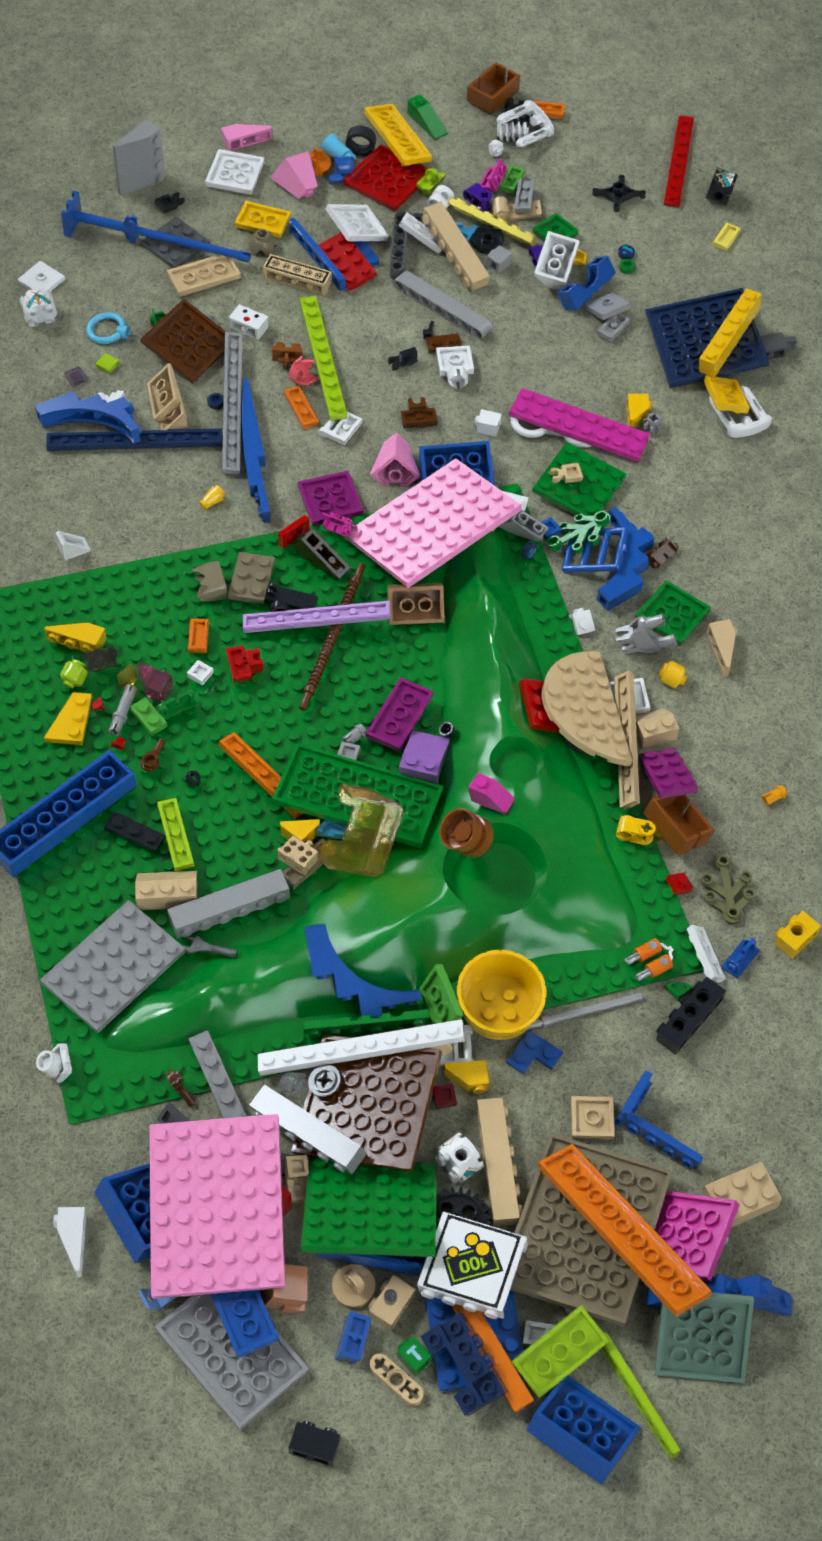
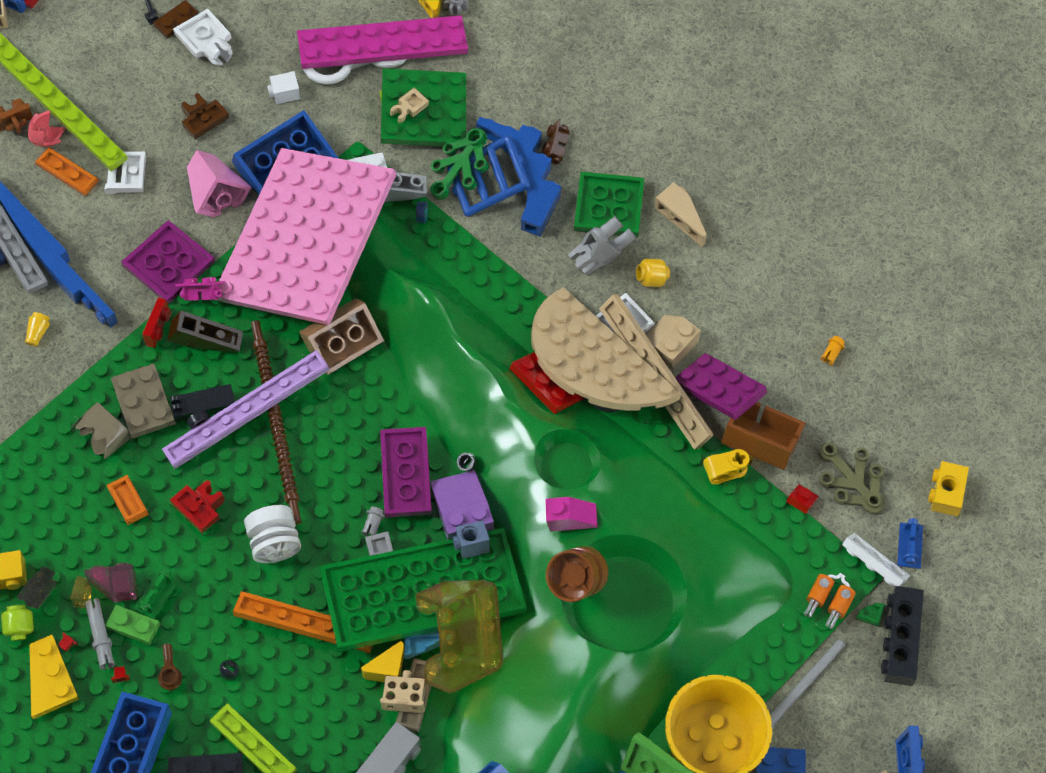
camera: 30 degrees left, 5 degrees up
(200, 672) = (158, 542): white plate -> none
(278, 704) = (272, 534): none -> white wheel
(405, 358) = (147, 56): black plate -> none
(413, 779) = (475, 531): none -> sand blue brick
(553, 528) = (425, 170): blue plate -> none
(582, 621) = (524, 262): white bracket -> none

